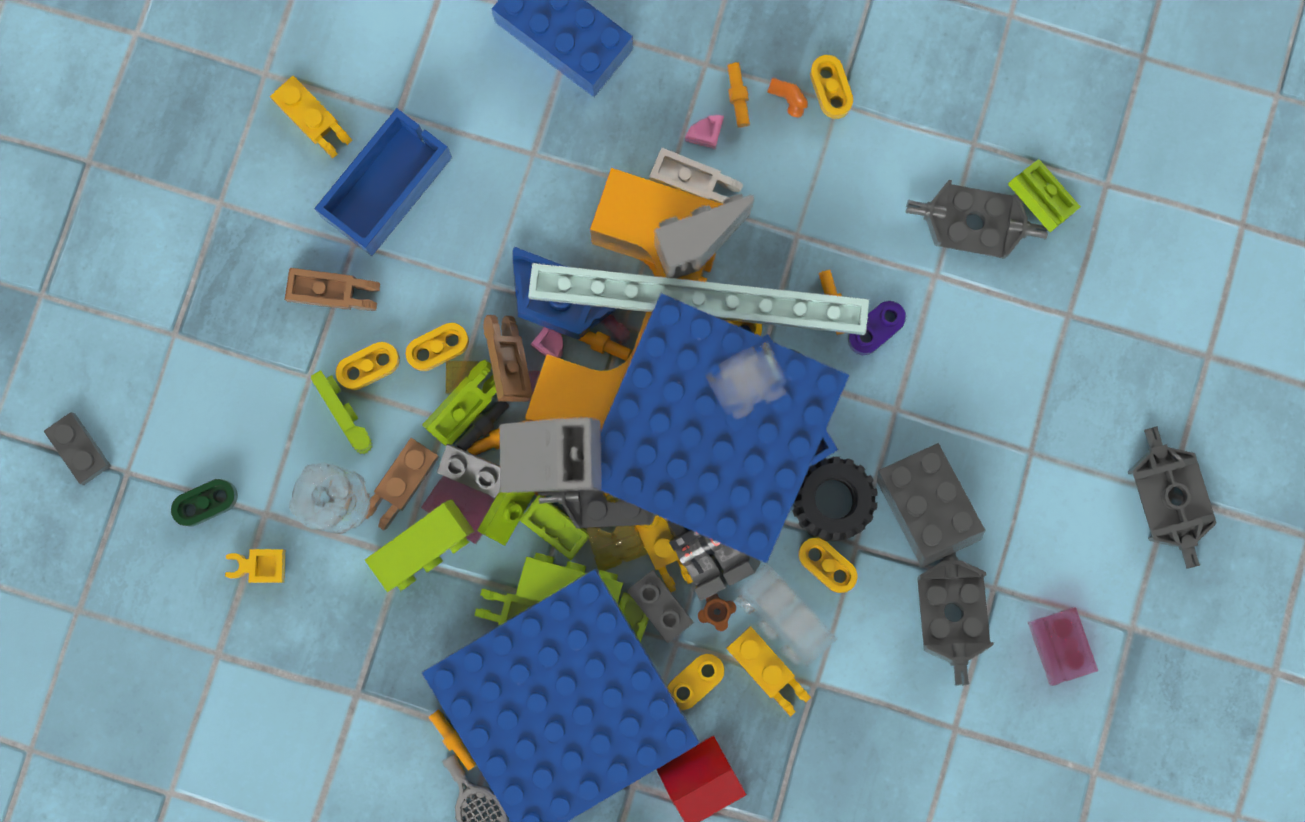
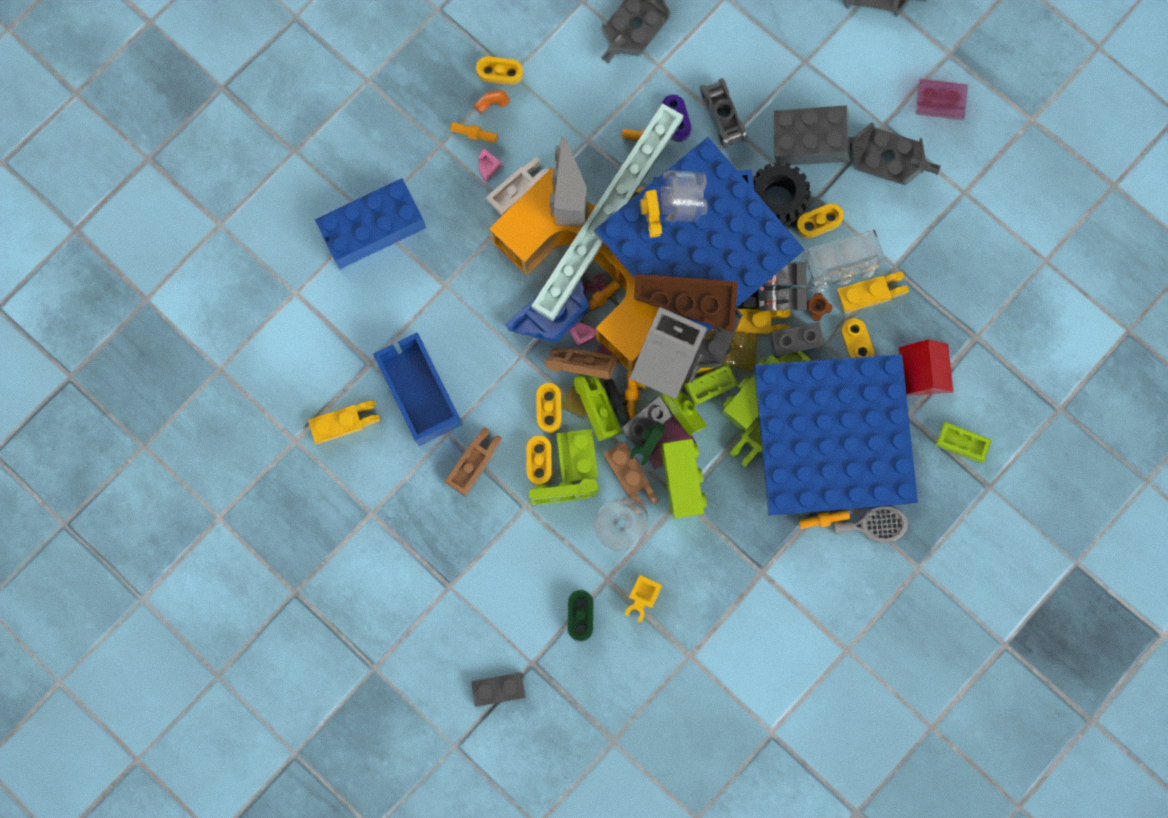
camera: 55 degrees left, 5 degrees down
(395, 408) = (577, 455): none -> lime plate
(450, 484) = (651, 438): none -> dark green plate
(632, 458) = (697, 299): none -> reddish brown wing
(715, 346) = (650, 207): none -> yellow plate
(925, 366) = (728, 128): none -> dark grey piece

